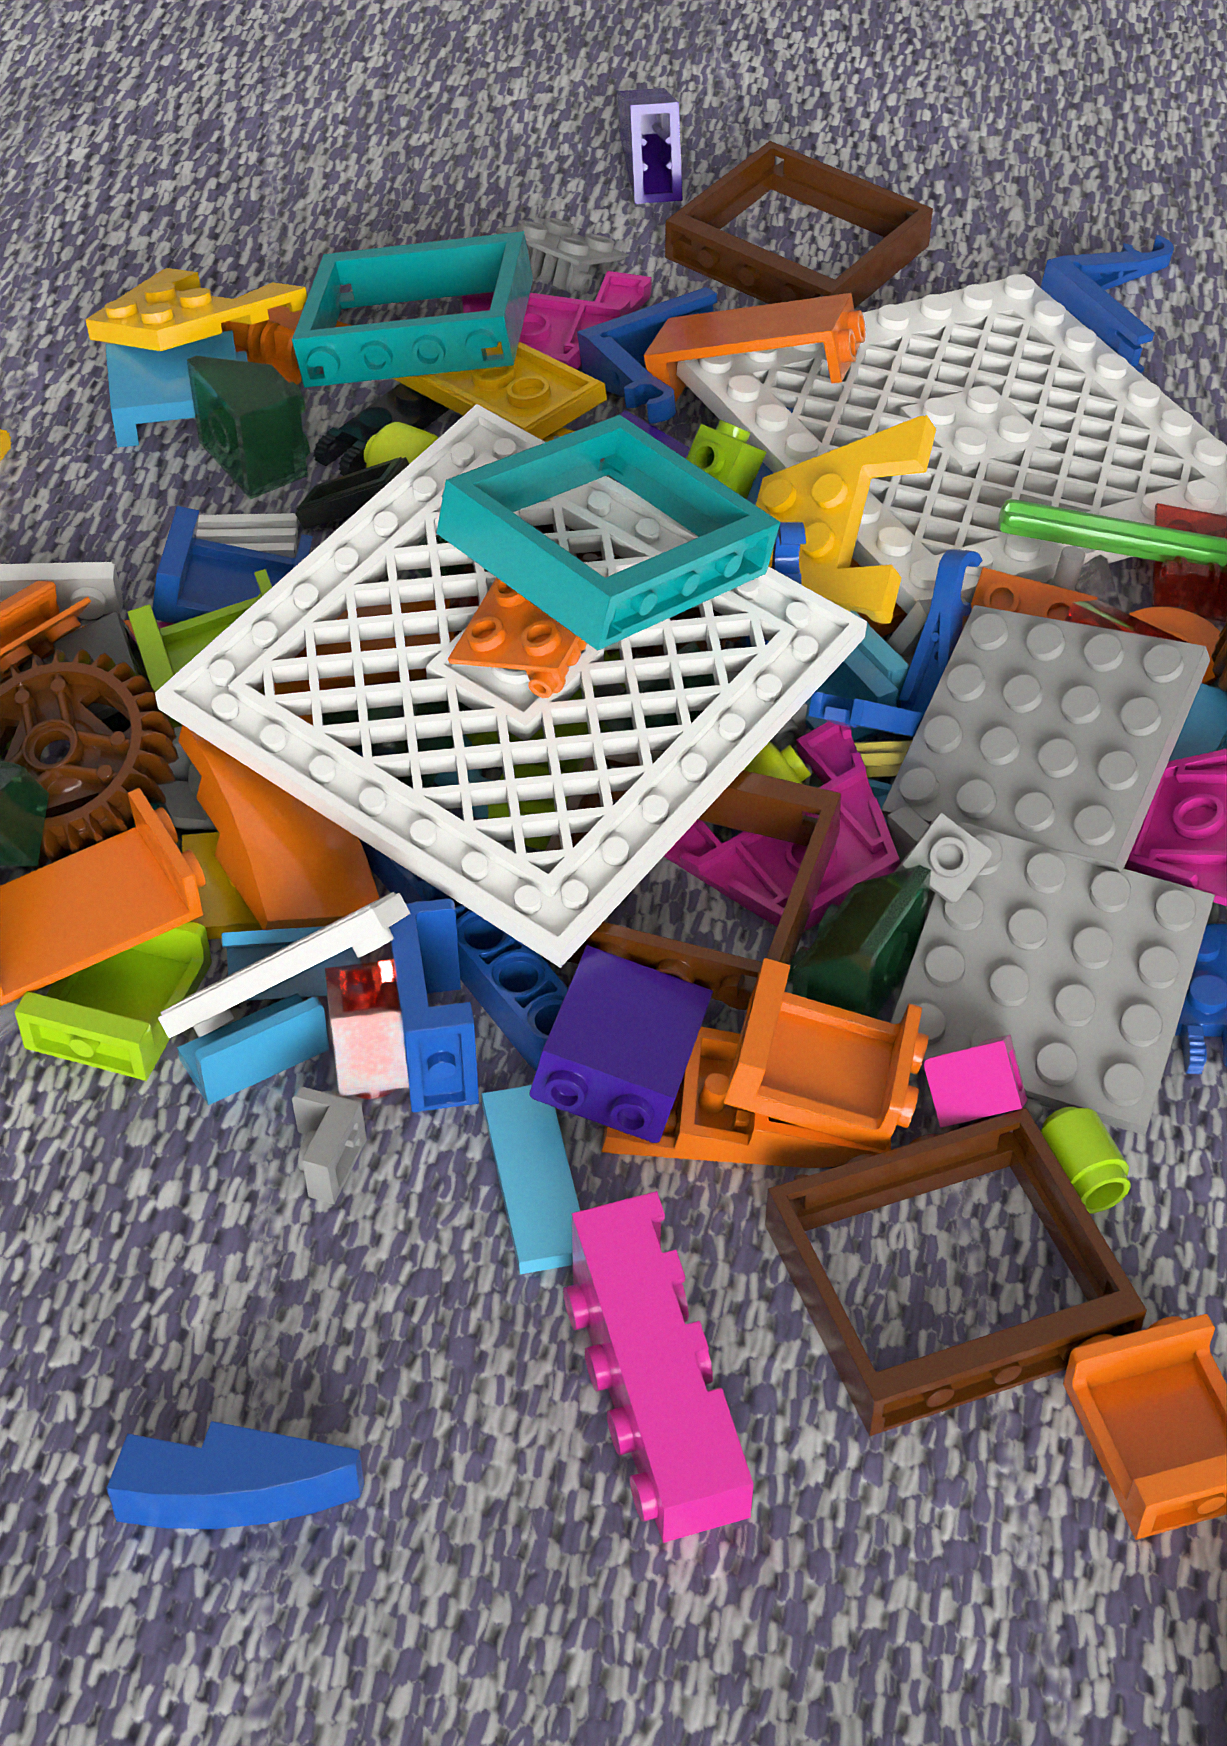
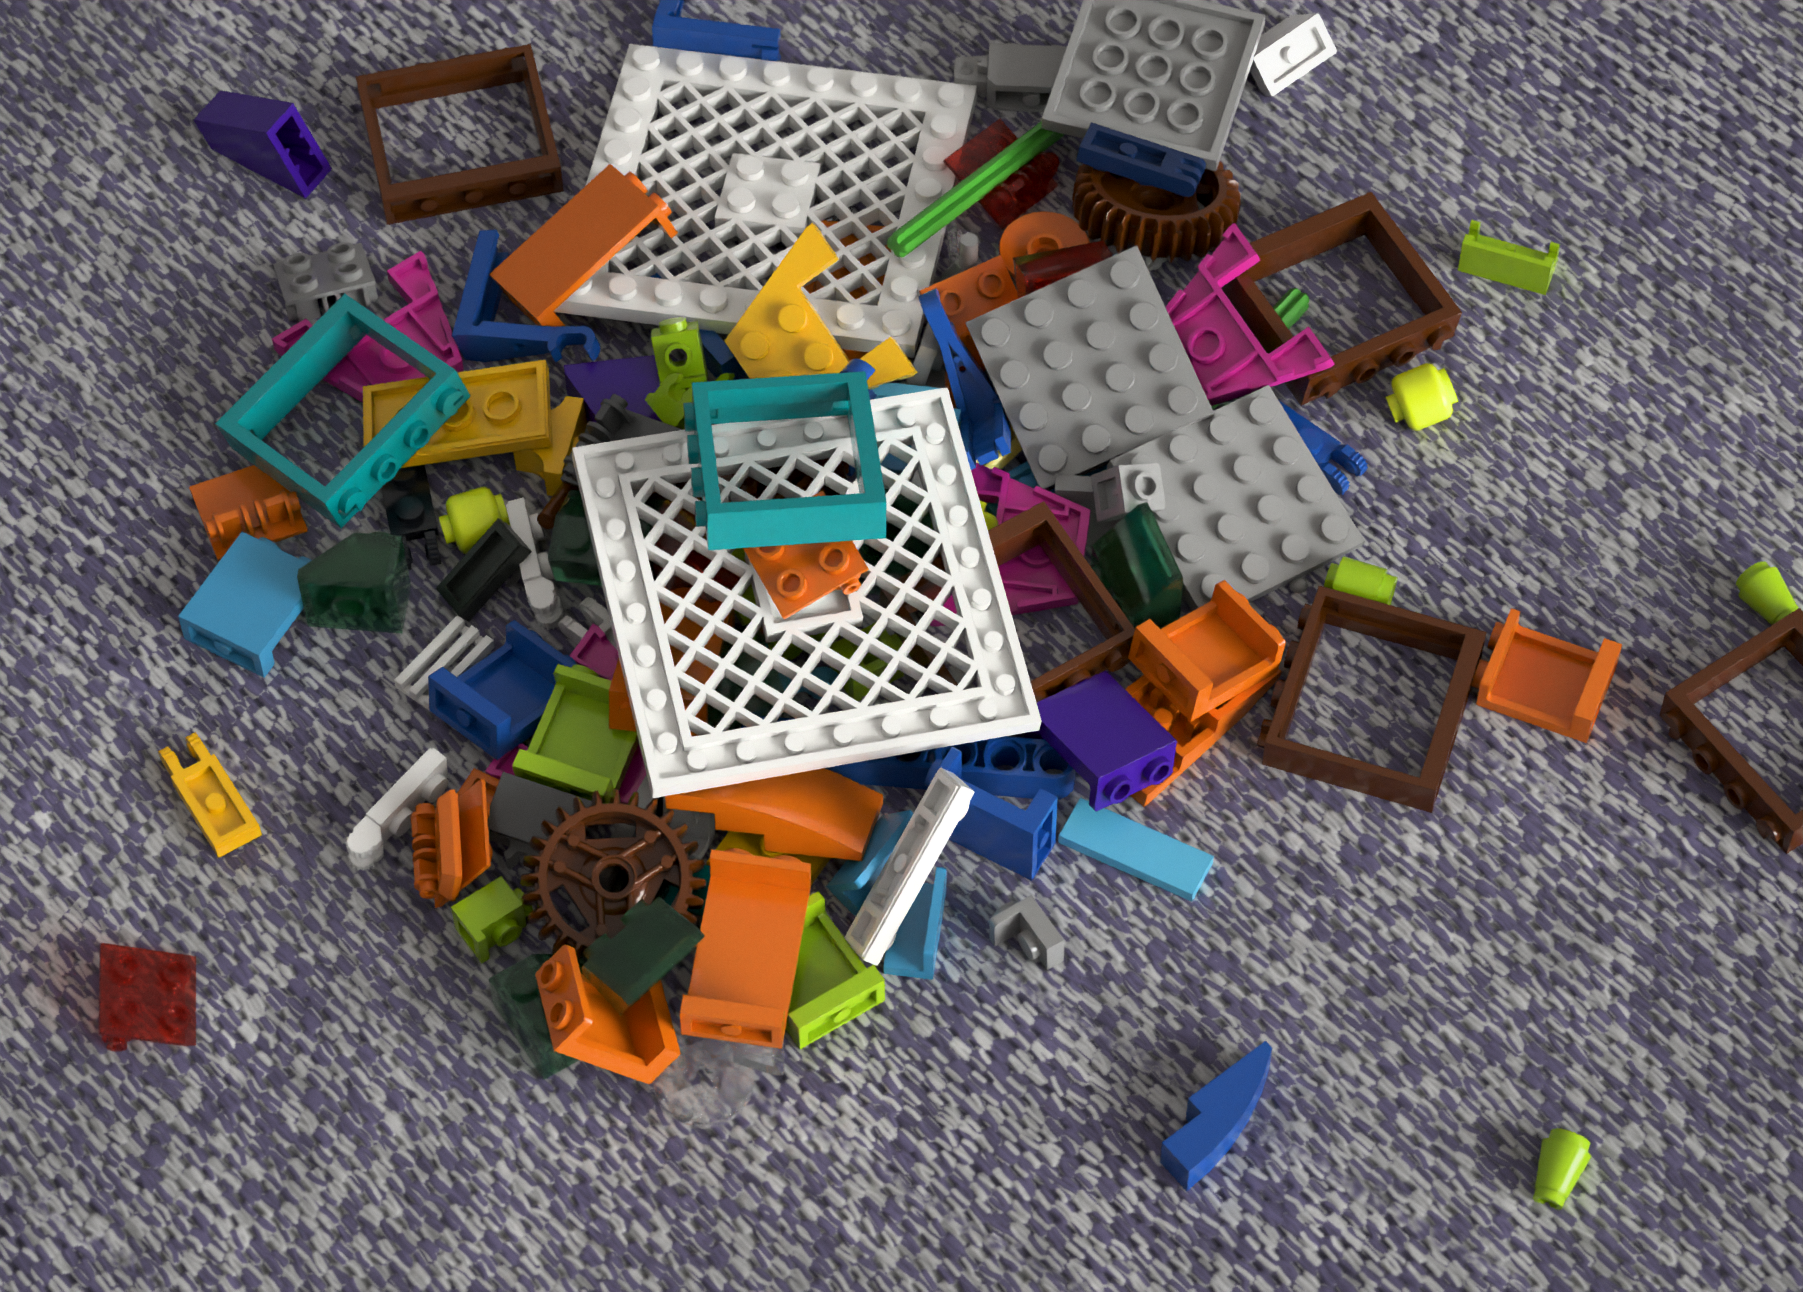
camera: 50 degrees left, 10 degrees up
(175, 311) = (194, 560): yellow wing -> none
(366, 1029) = (988, 859): clear red brick -> none
(655, 1371) = (1326, 875): dark pink wedge -> none
(976, 1082) = (1284, 594): dark pink panel -> none

